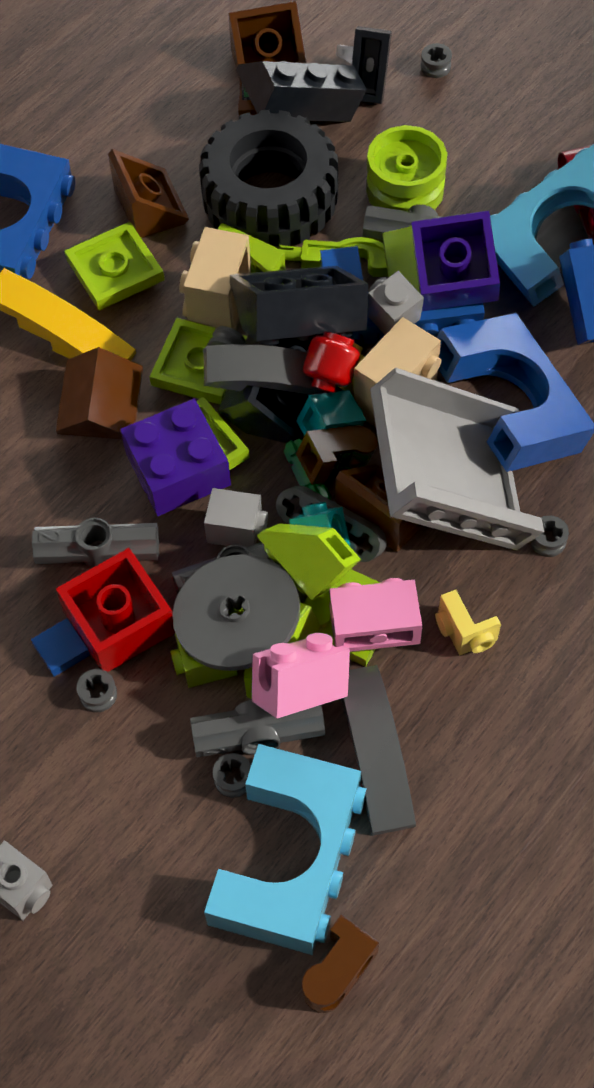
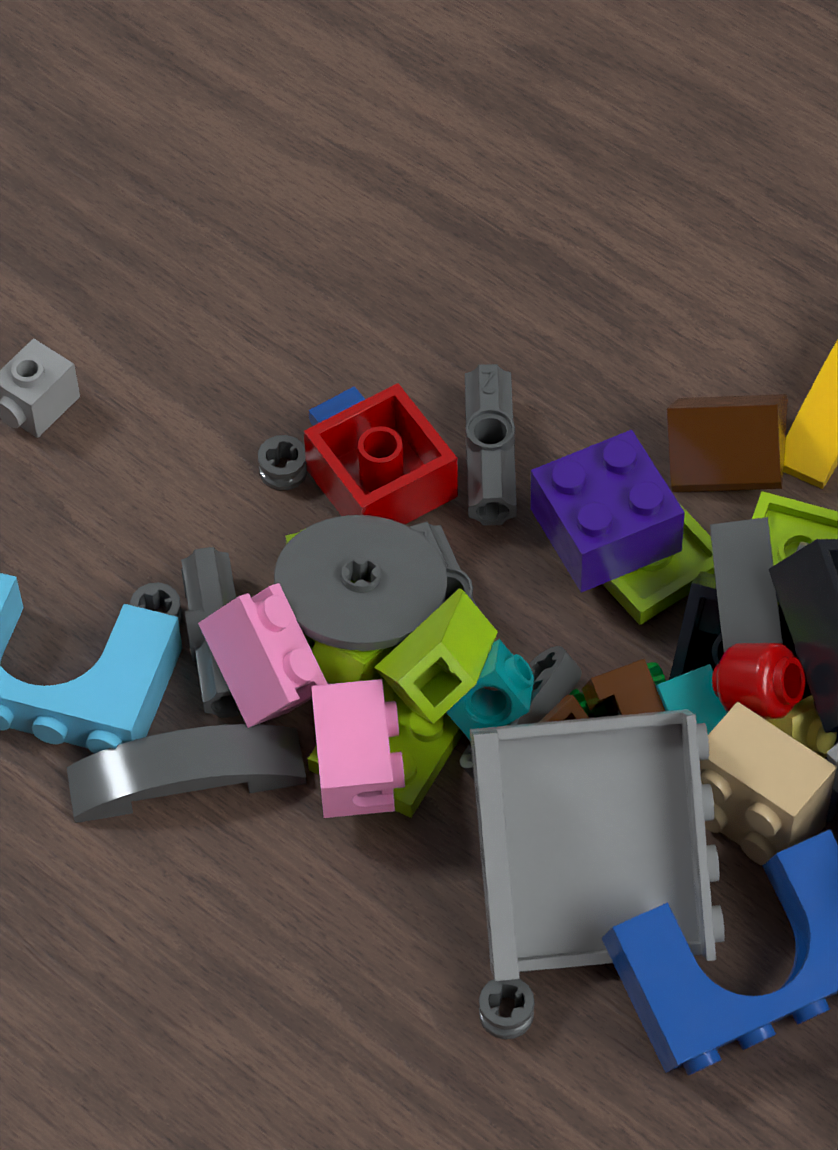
camera: 90 degrees right, 5 degrees down
(234, 518) = (522, 593): light grey brick -> none
(456, 622) = (353, 871): light yellow bracket -> none

